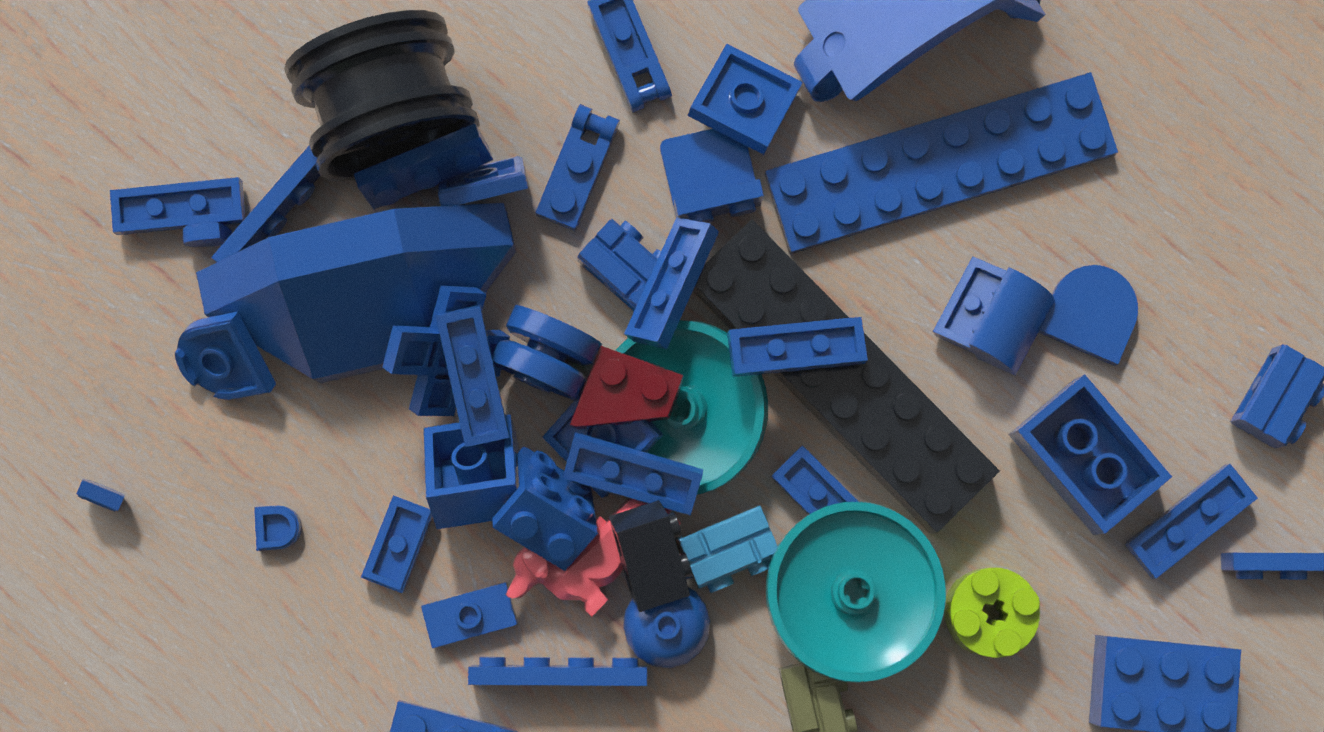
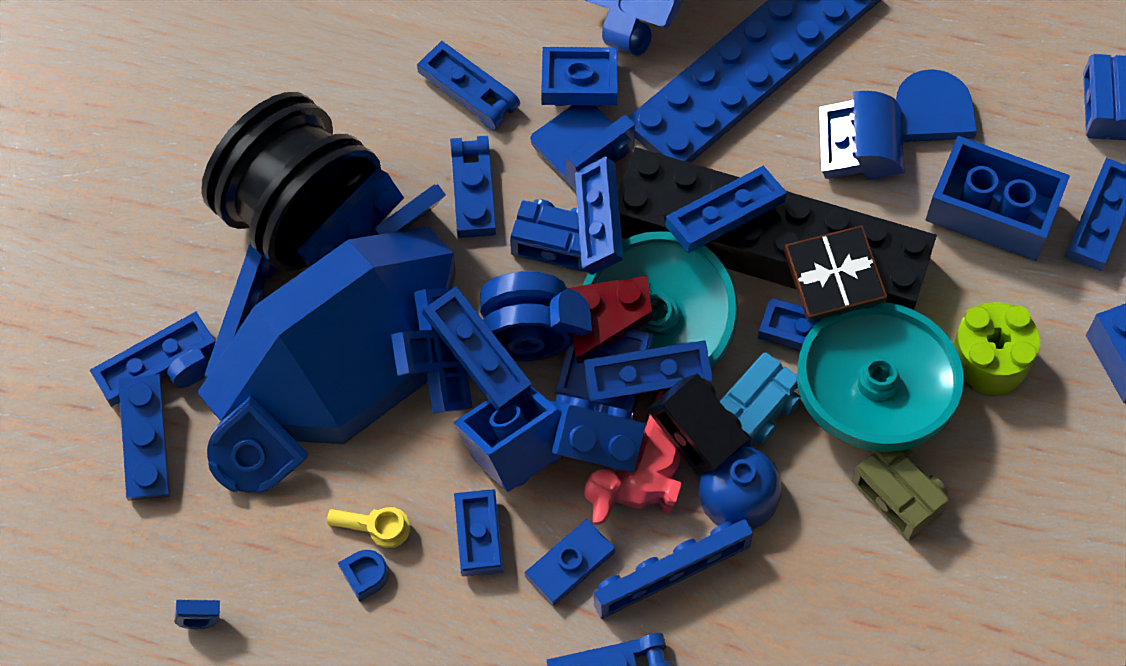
camera: 25 degrees left, 20 degrees down
(131, 287) = (143, 437): none -> blue plate
(316, 493) = (386, 526): none -> light yellow plate
(583, 382) = (570, 313): none -> blue tile
(869, 467) = (835, 273): none -> black tile

